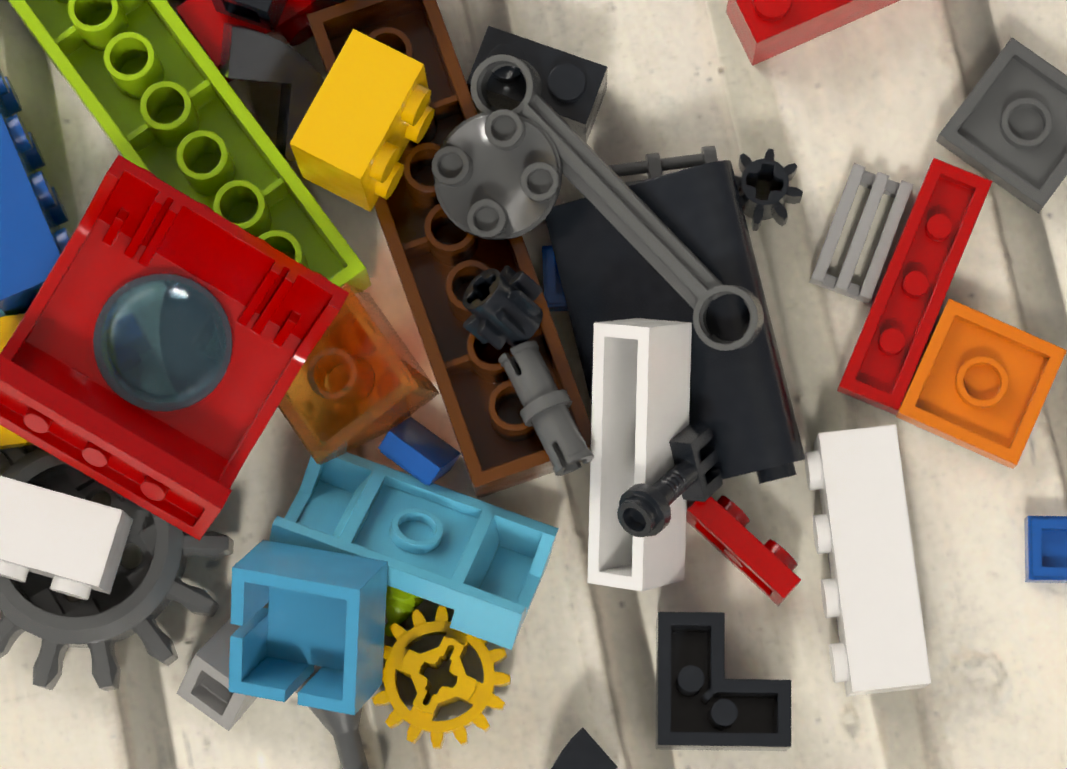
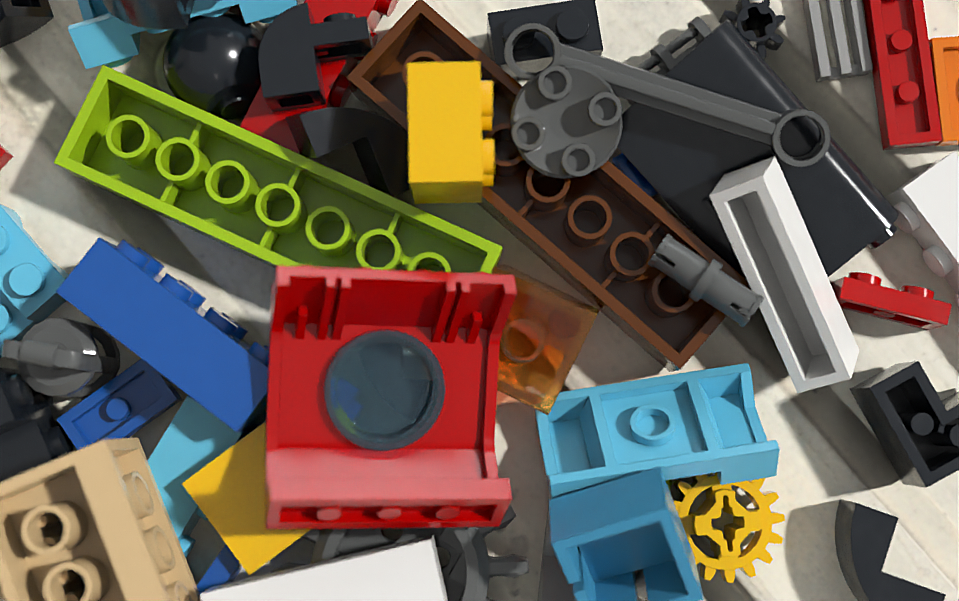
camera: 35 degrees left, 5 degrees up
(419, 451) = (611, 361): blue tile -> none
(502, 307) = (631, 221): black gear -> none
(646, 508) = (831, 316): black hinge -> none

